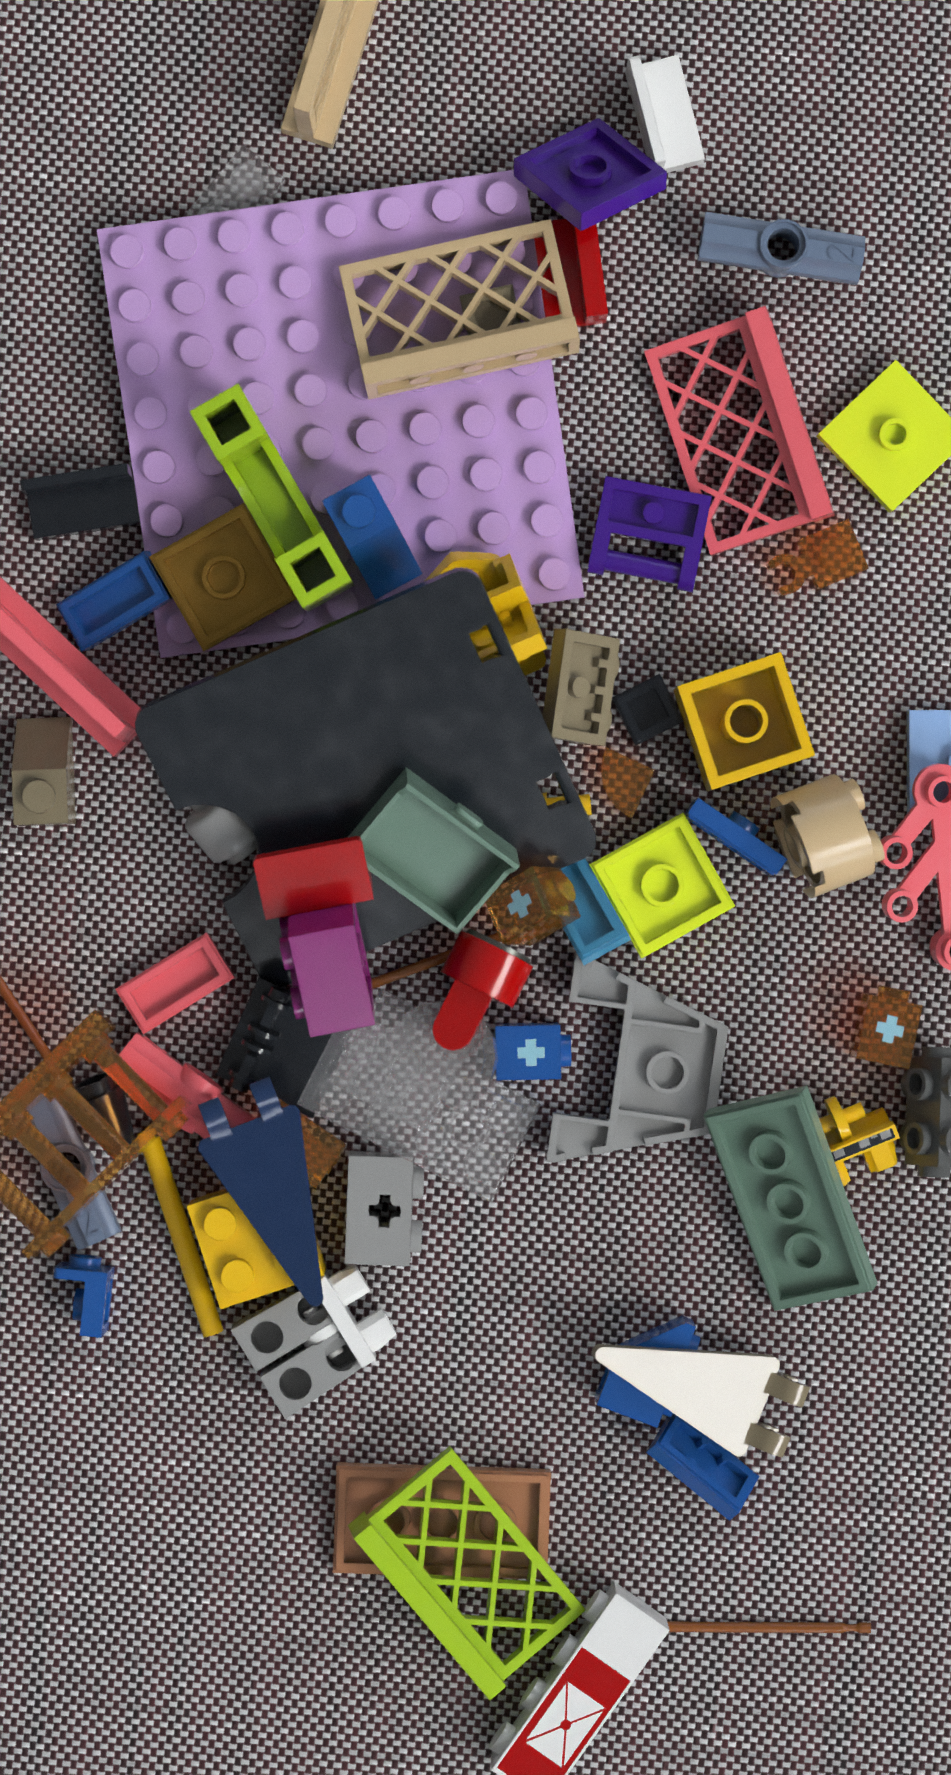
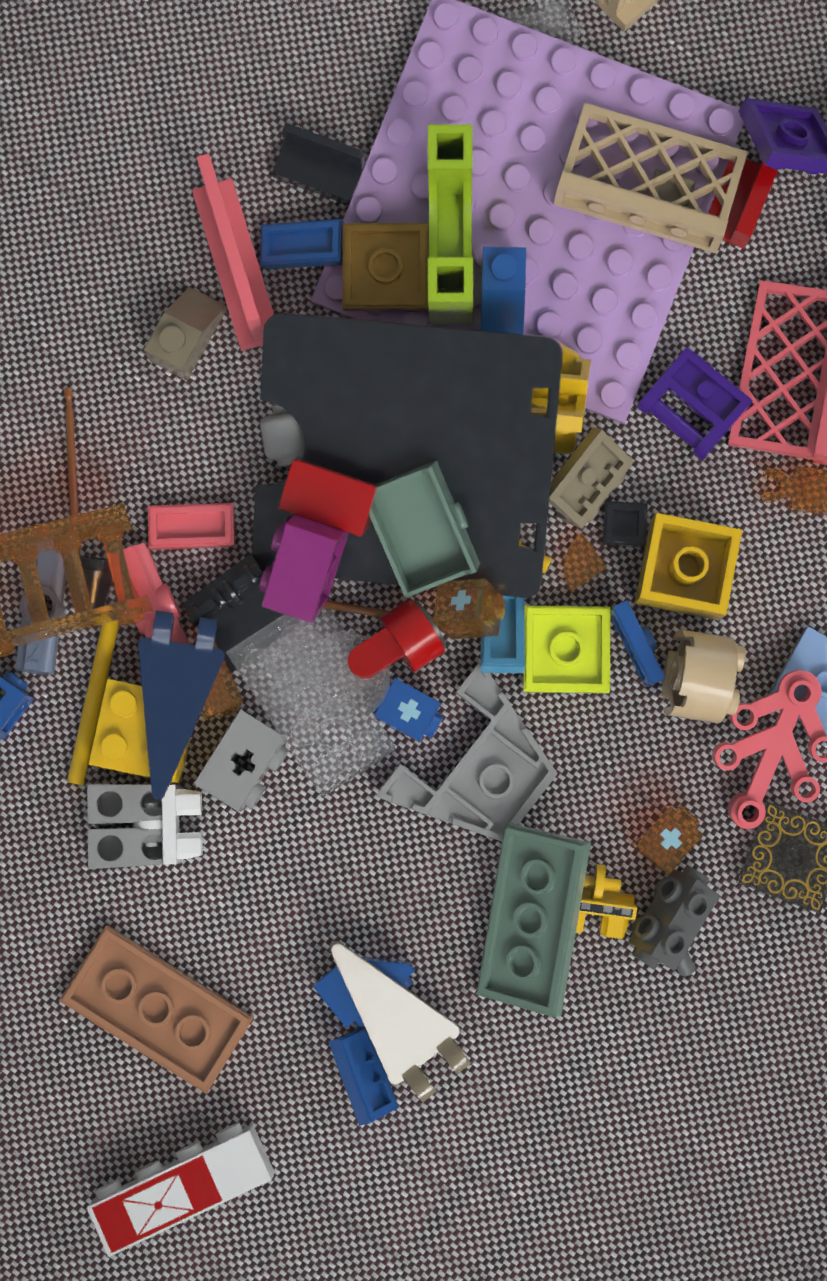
camera: 30 degrees right, 5 degrees down
(432, 1603) = (114, 1059): lime fence -> none
(768, 1627) = (341, 1220): dark orange piece -> none

